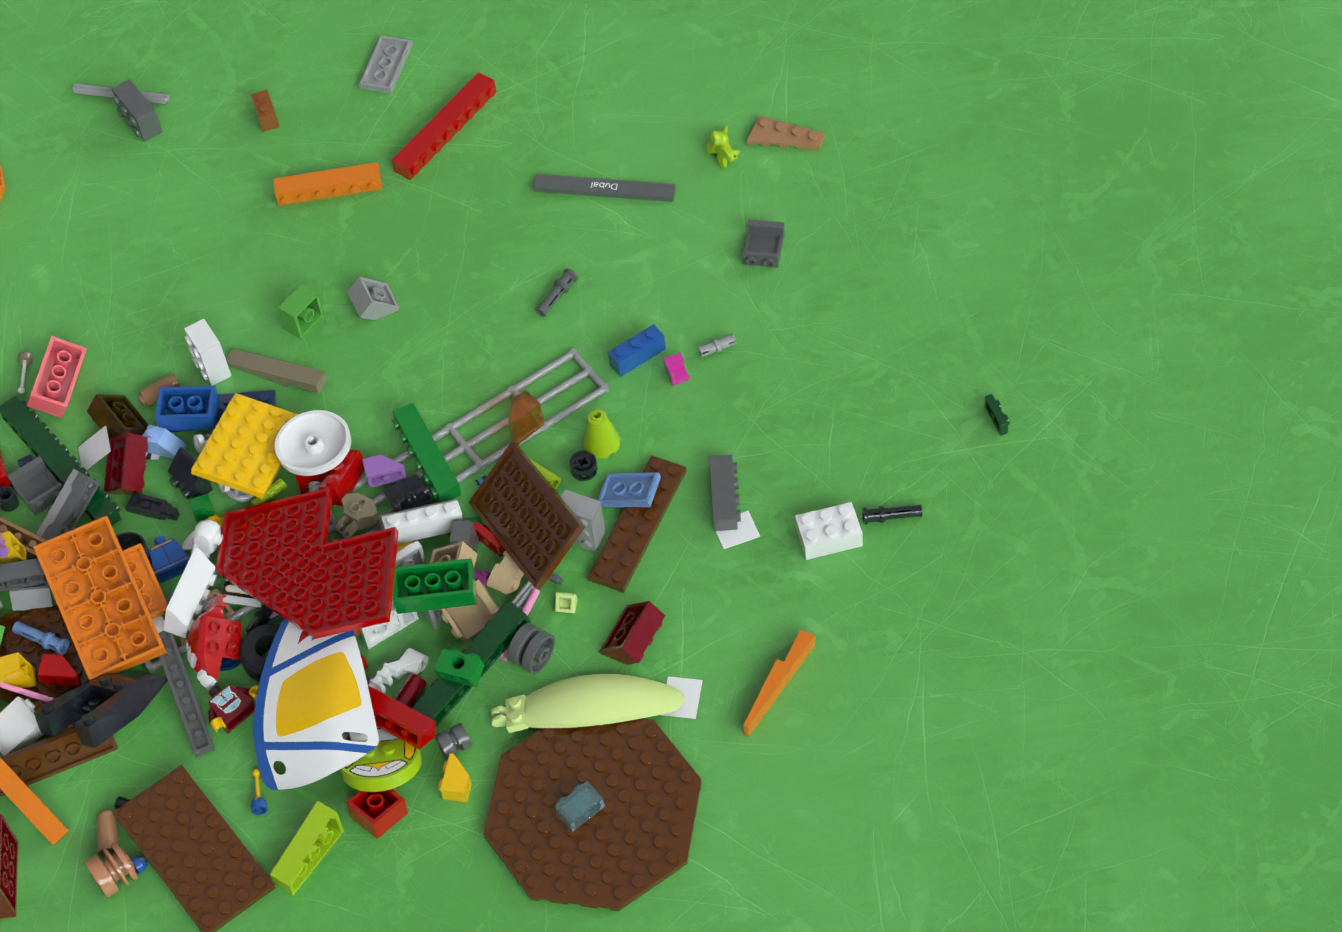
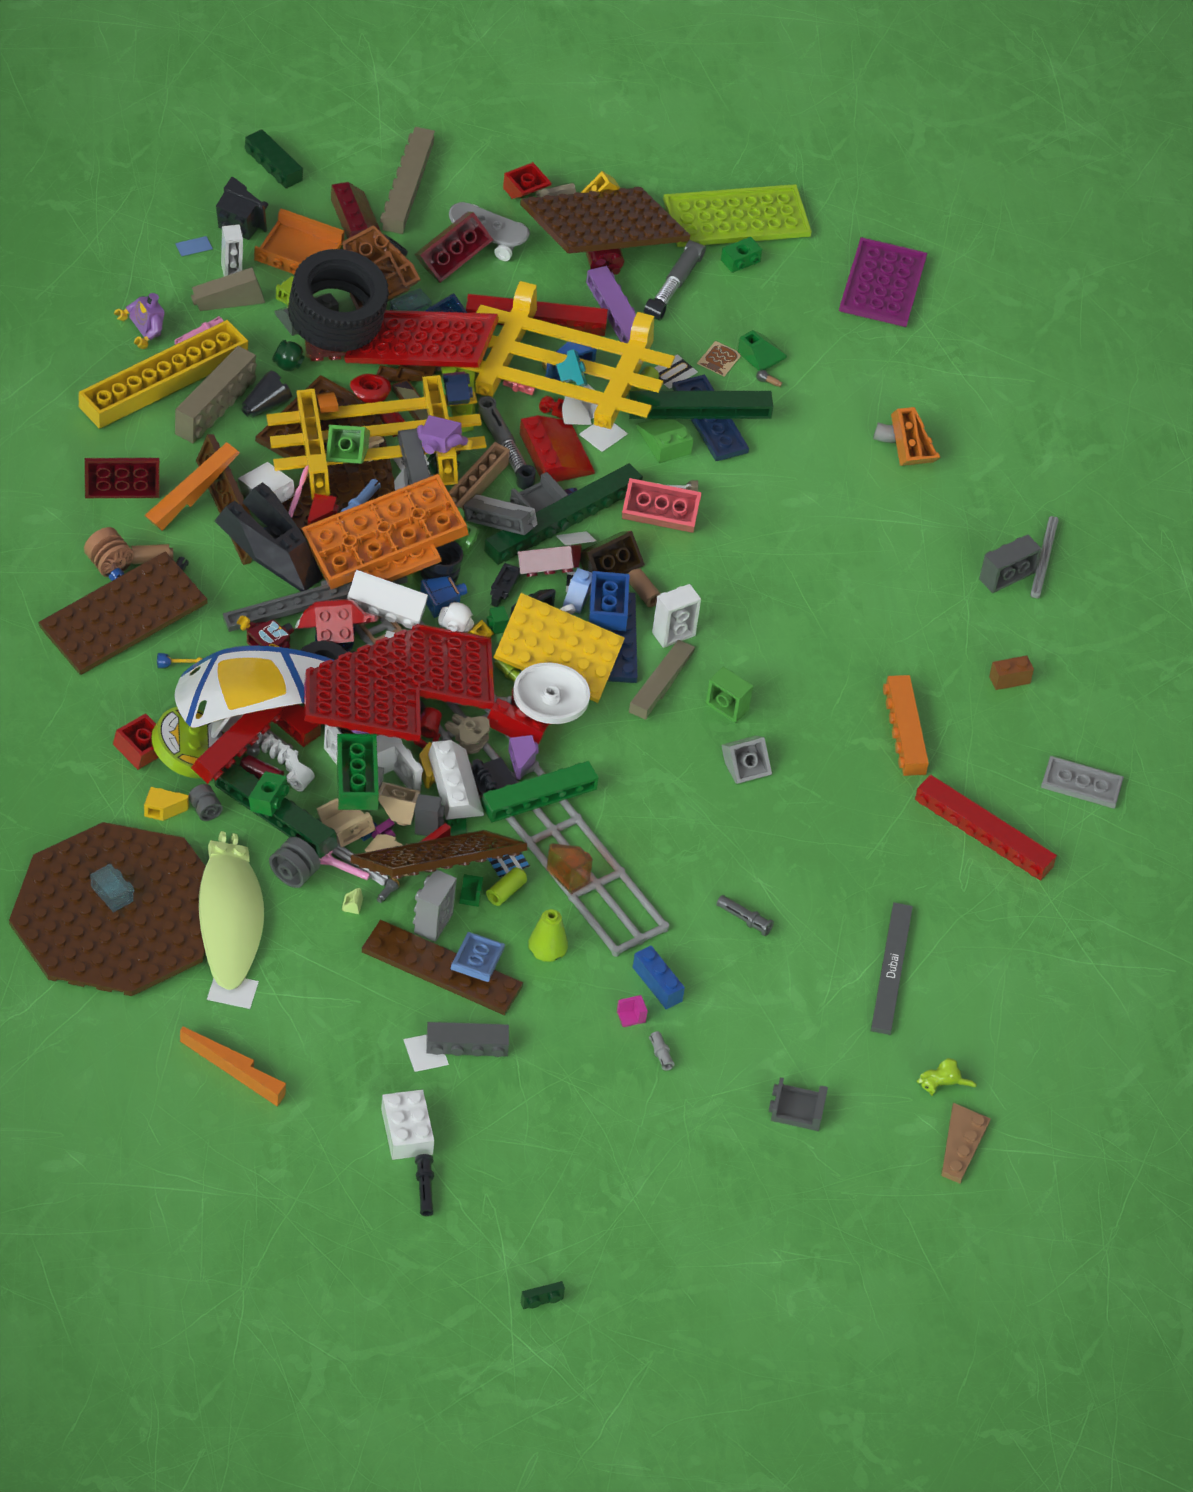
camera: 80 degrees right, 5 degrees down
(307, 848) = (109, 691): lime wedge -> none
(583, 465) = (516, 923): black wheel -> none
(633, 633) = (306, 951): dark red slope -> none

